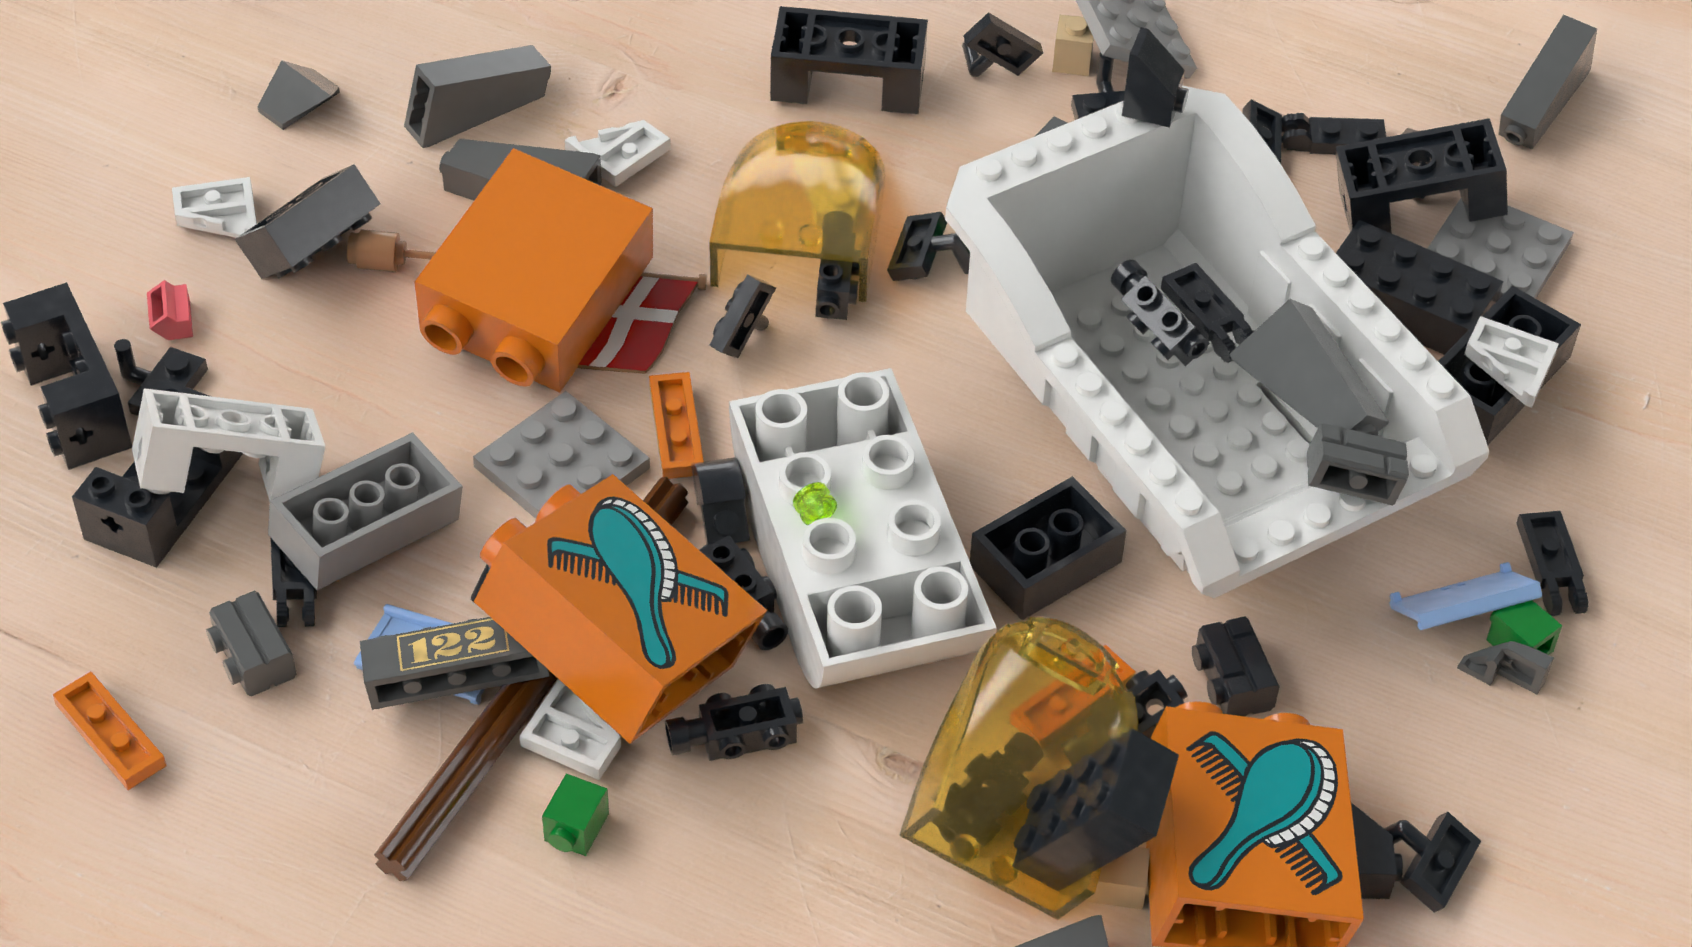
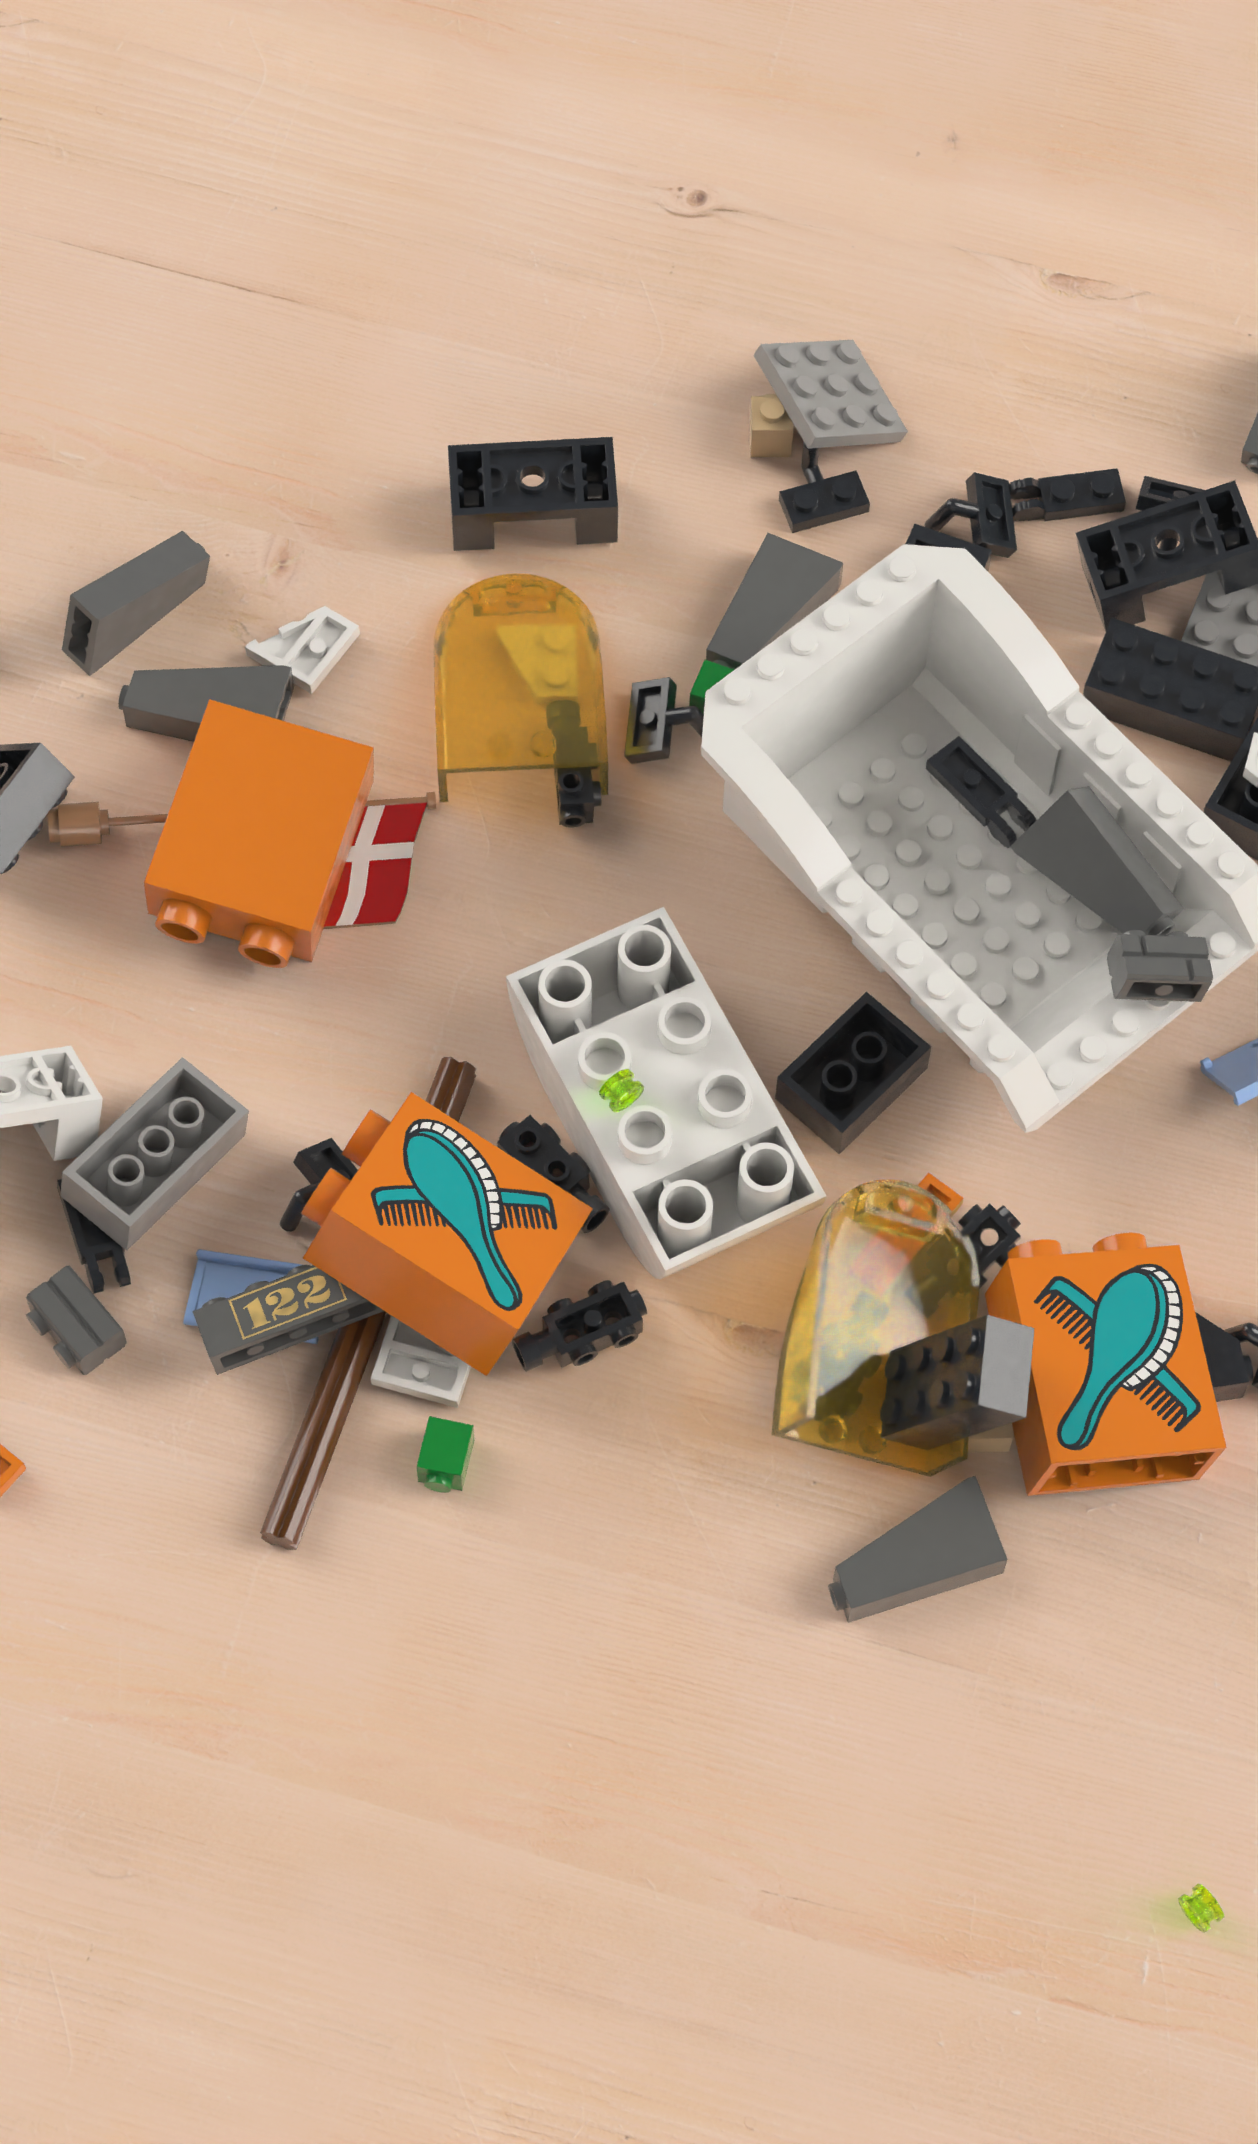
camera: 10 degrees left, 15 degrees up
(558, 448) = (334, 1049): light grey plate -> none
(675, 423) = (444, 986): orange plate -> none
(721, 498) = (512, 1069): black brick -> none
(742, 316) = (493, 838): black plate -> none
(998, 44) = (691, 444): black plate -> none
(1153, 82) = (894, 566): black slope -> none
(1155, 312) = (931, 809): black brick -> none
(1235, 668) = (1060, 1175): black brick -> none

